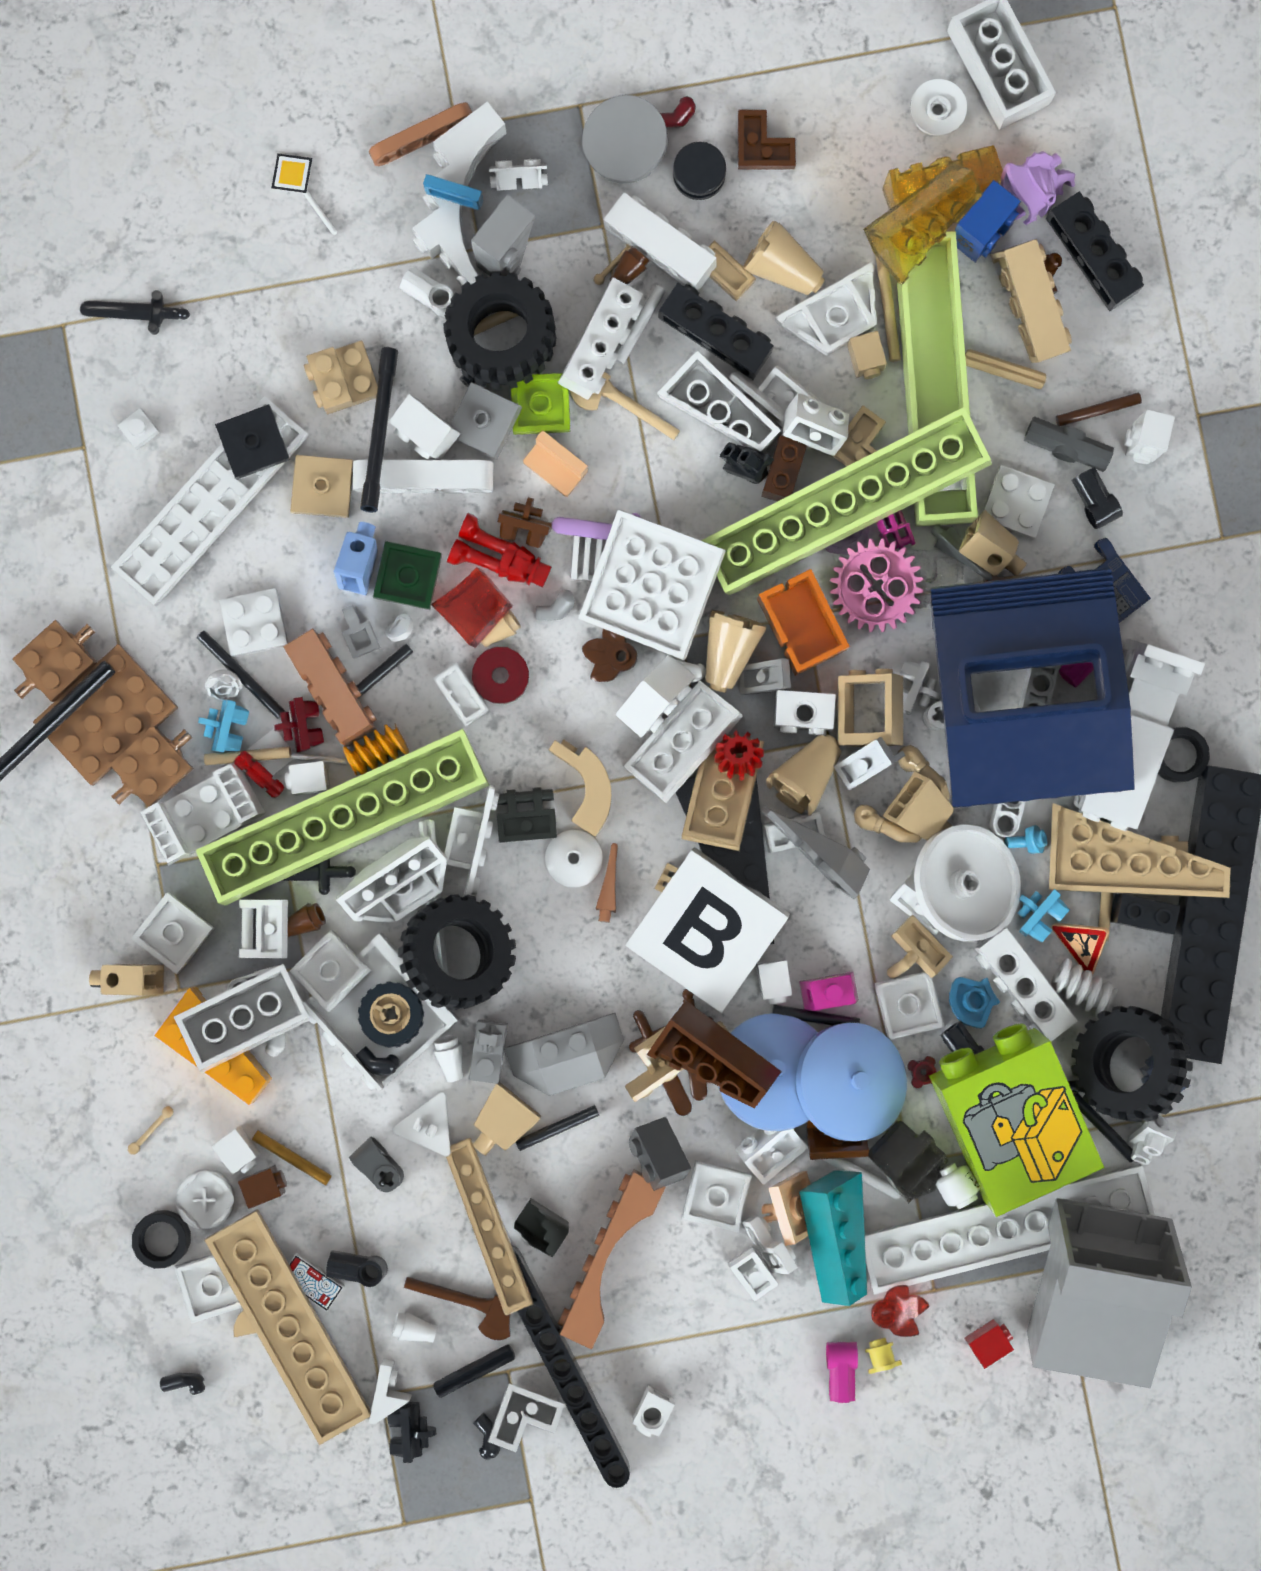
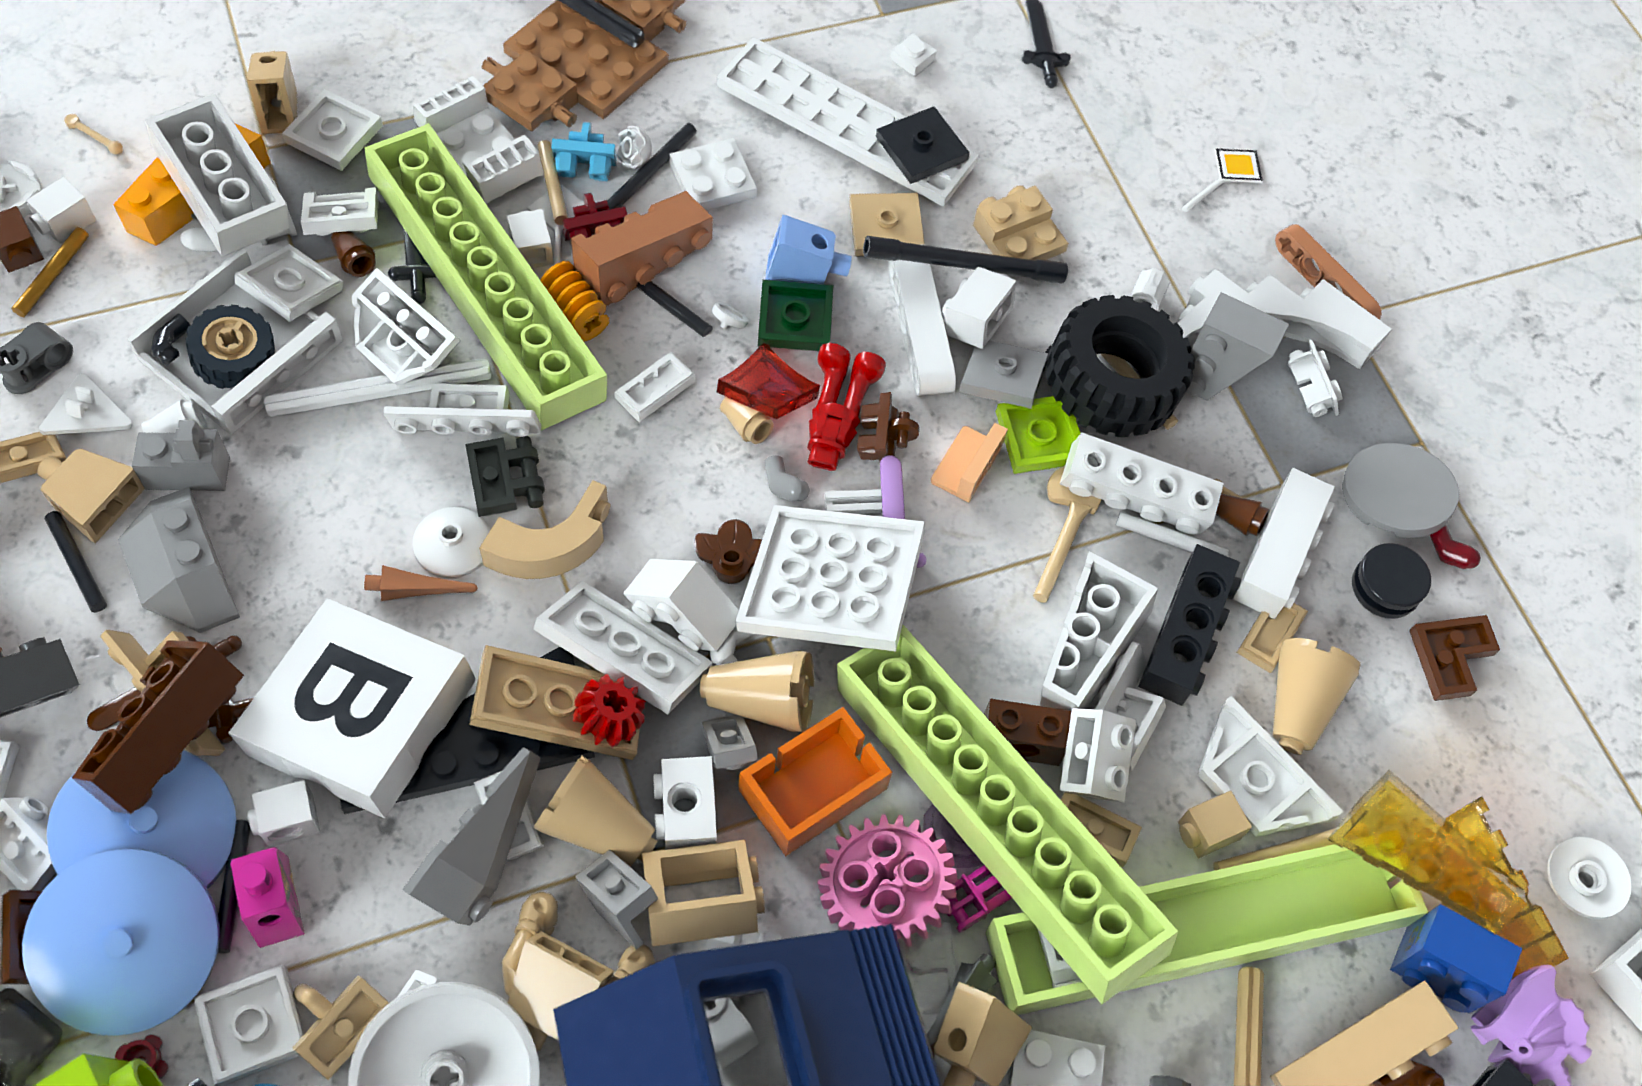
camera: 75 degrees right, 25 degrees down
(259, 774) = (531, 188): red axle -> none
(359, 636) = (713, 274): light grey plate -> none
(453, 192) = (1272, 288): dark azure tile -> none
(487, 931) = (300, 347): black tyre -> none
(500, 658) = (682, 411): dark red tile -> none
(746, 462) = (1023, 679): black hips -> none

